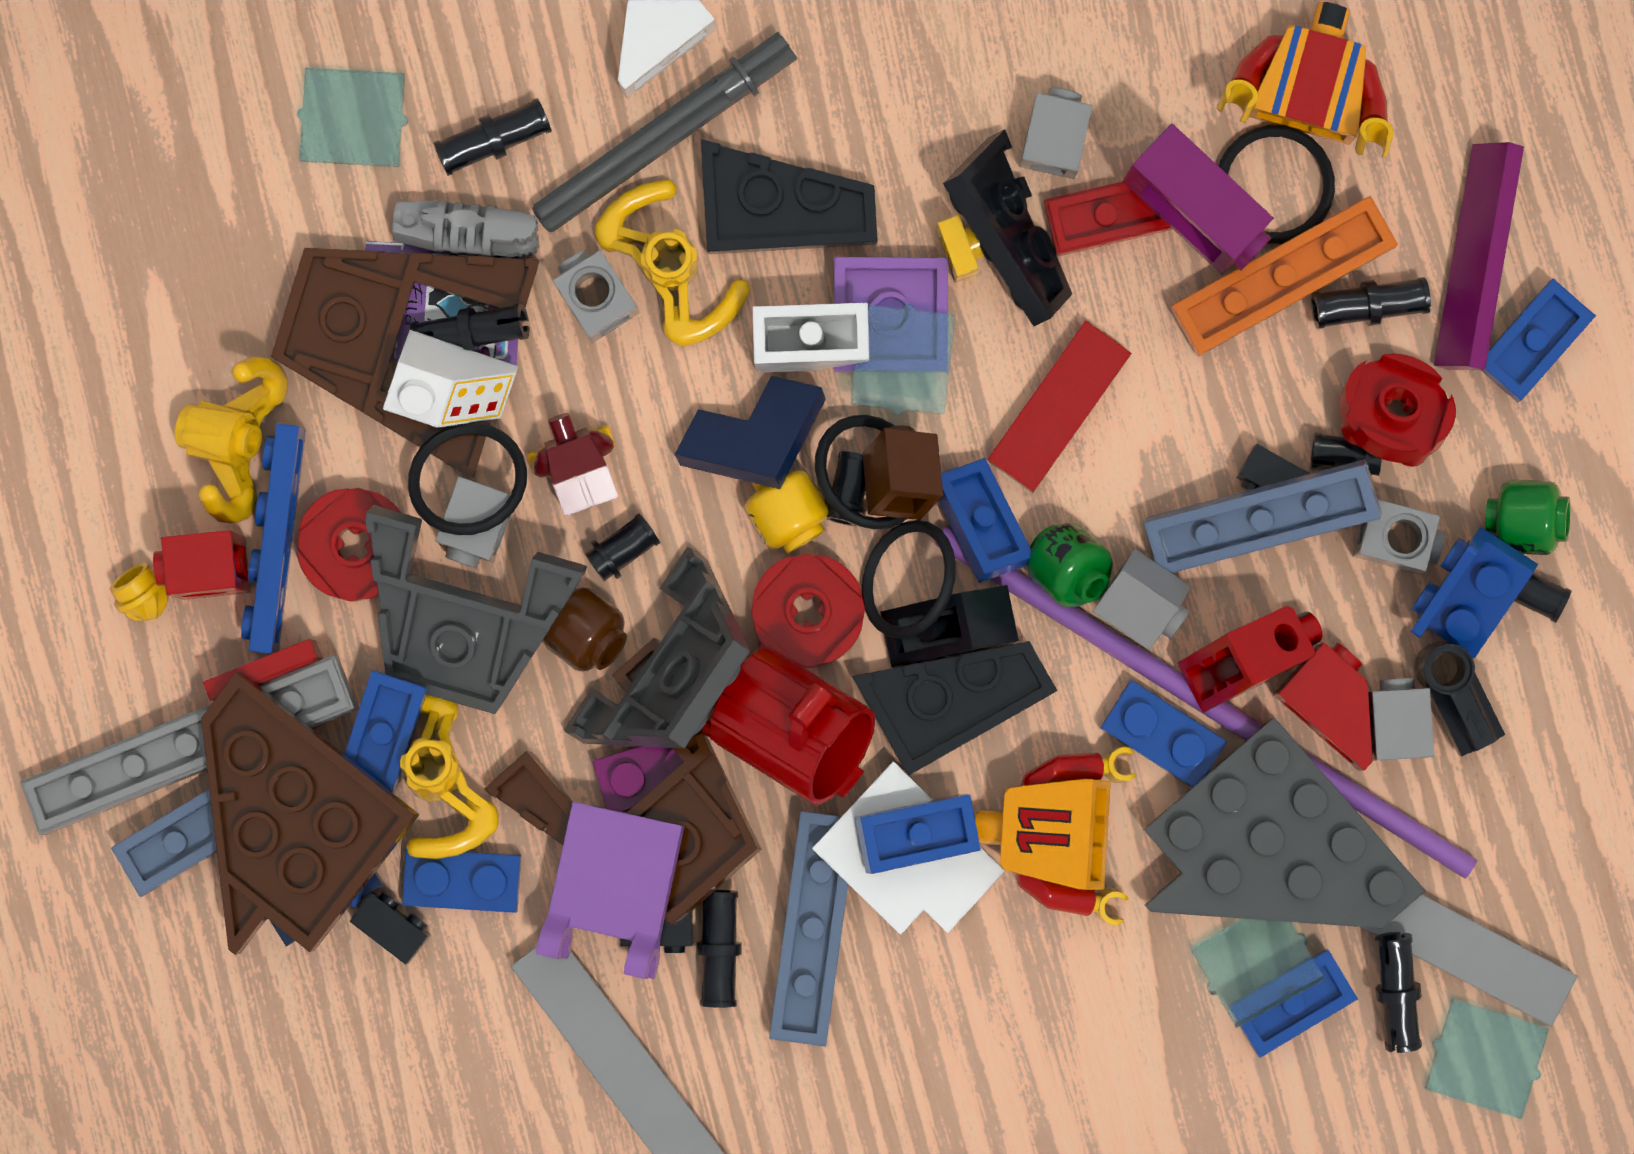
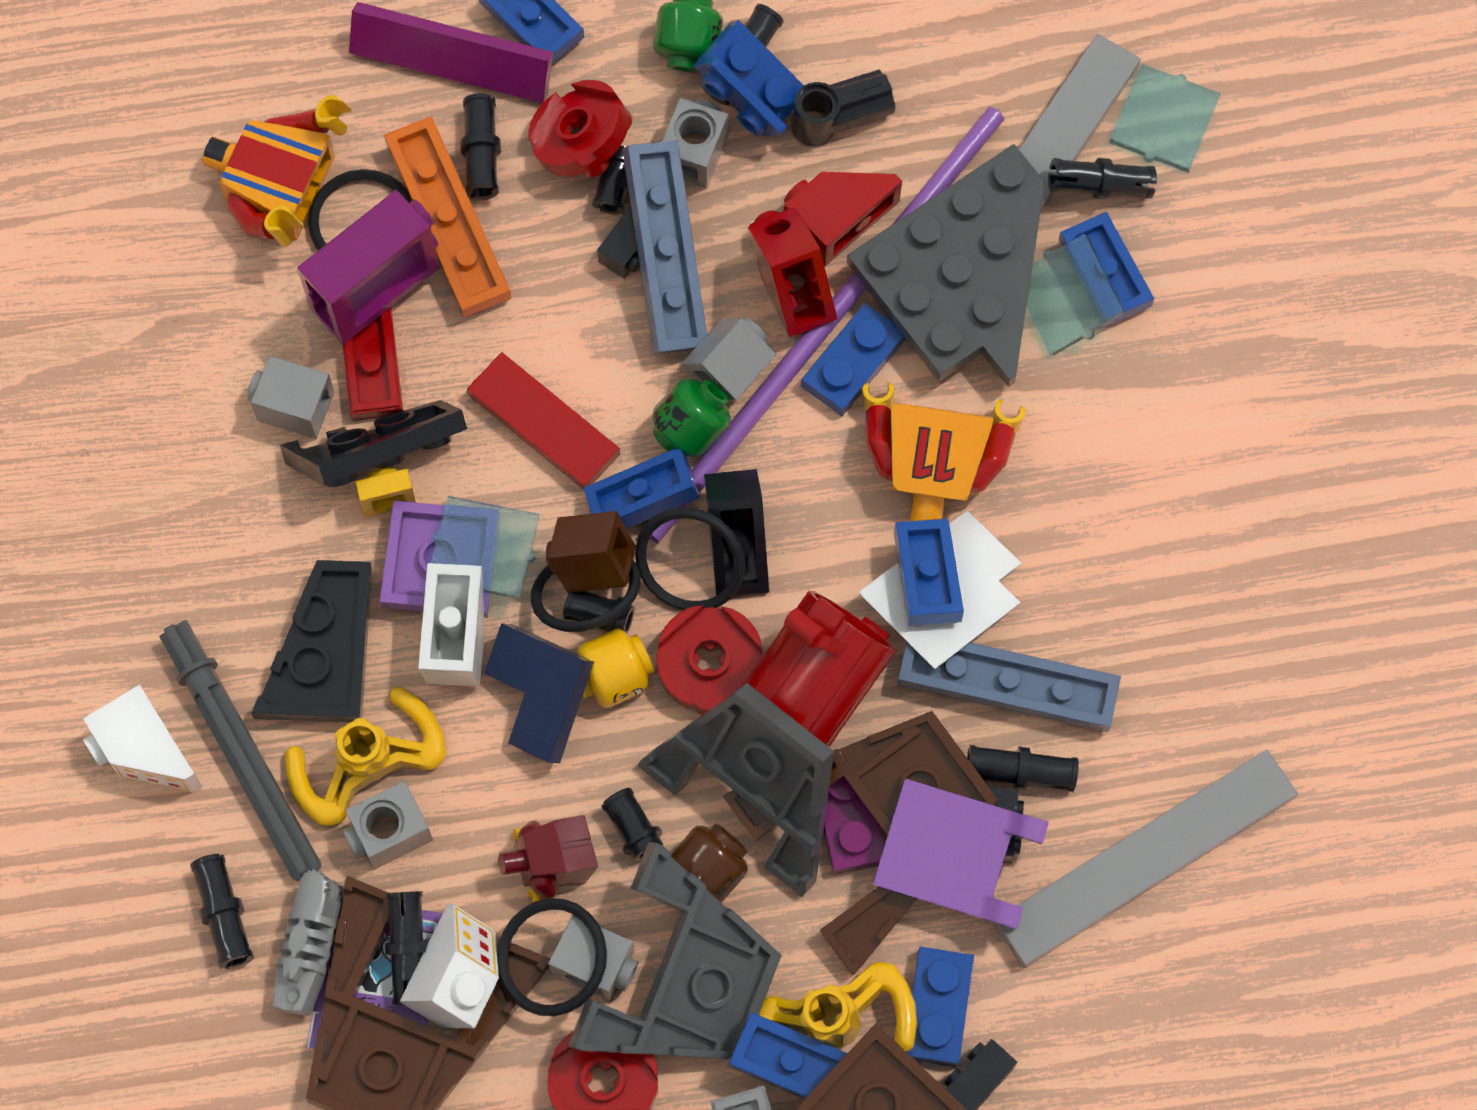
camera: 85 degrees left, 15 degrees down
(352, 117) = (183, 1049): clear light blue piece -> none
(951, 700) = (805, 533): black wing -> none
(1400, 721) = (860, 147): light grey brick -> none

